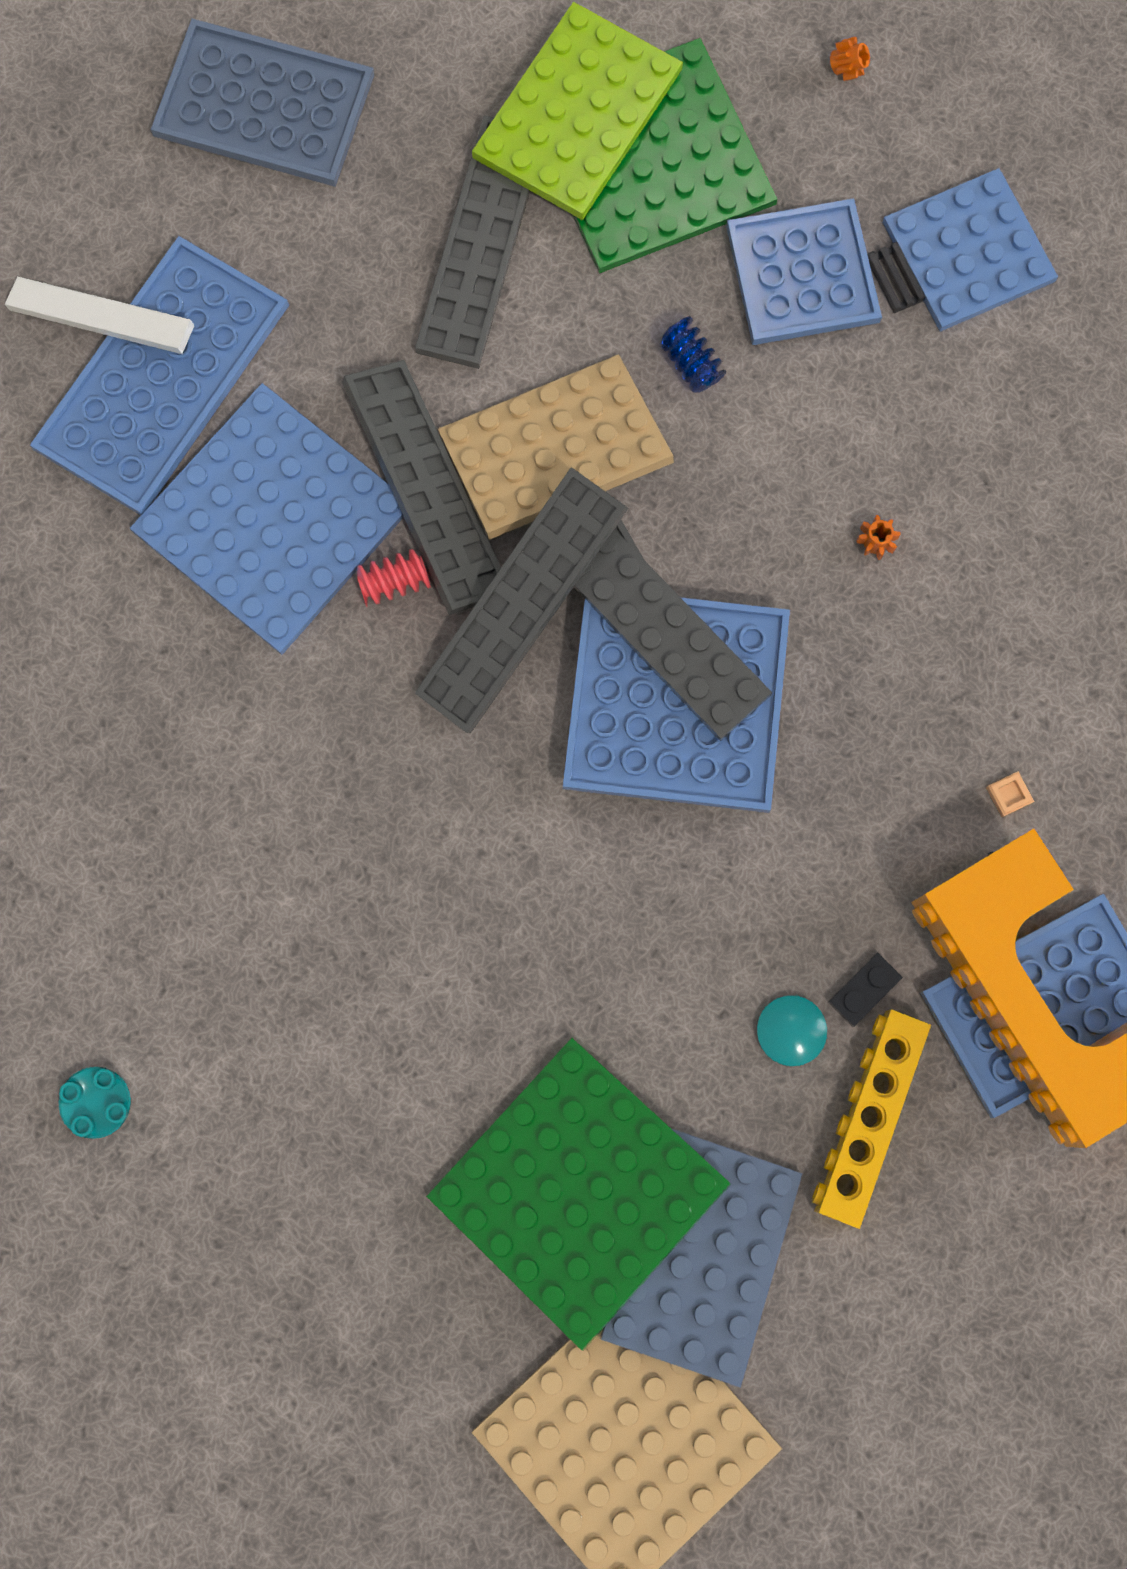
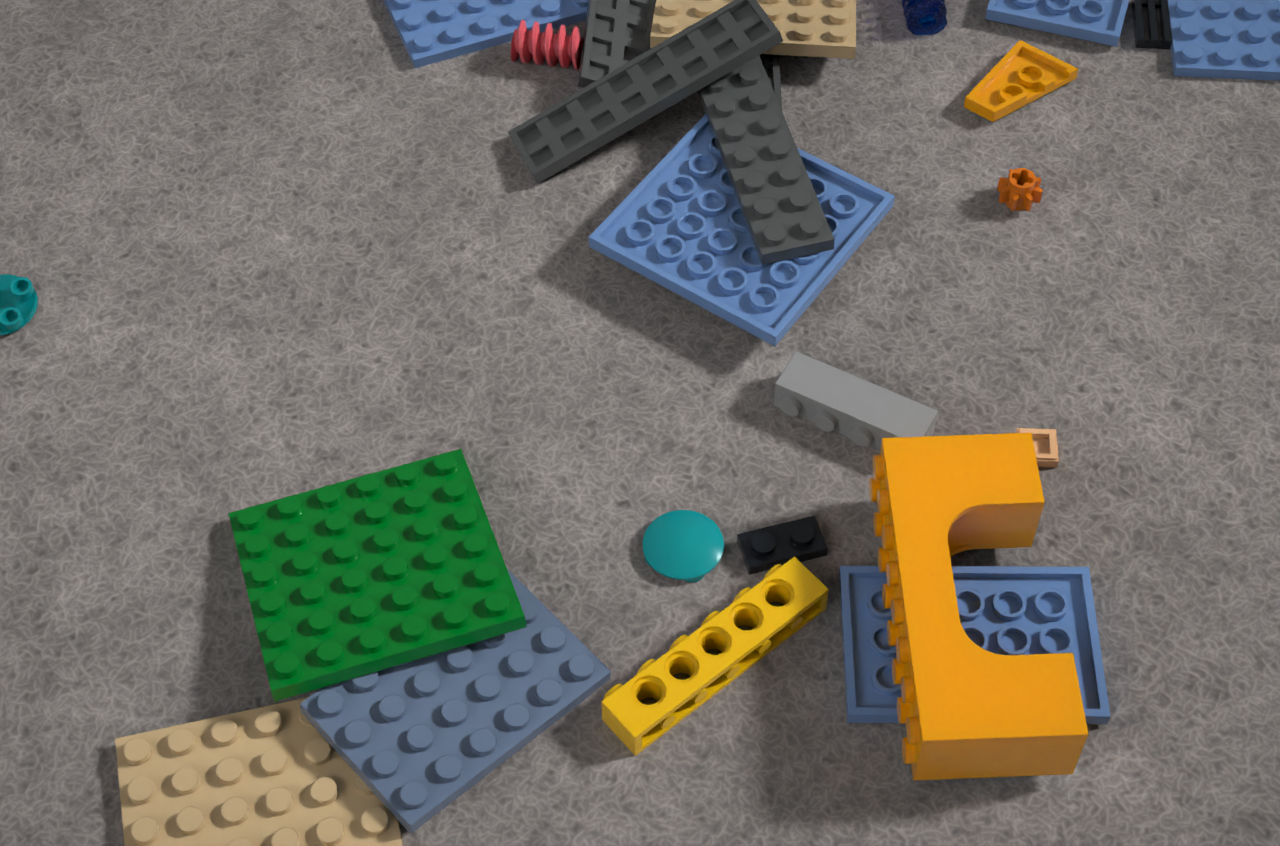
camera: 30 degrees right, 25 degrees down
(816, 410) = (1017, 81): none -> light orange wing
(858, 836) = (849, 404): none -> light grey brick

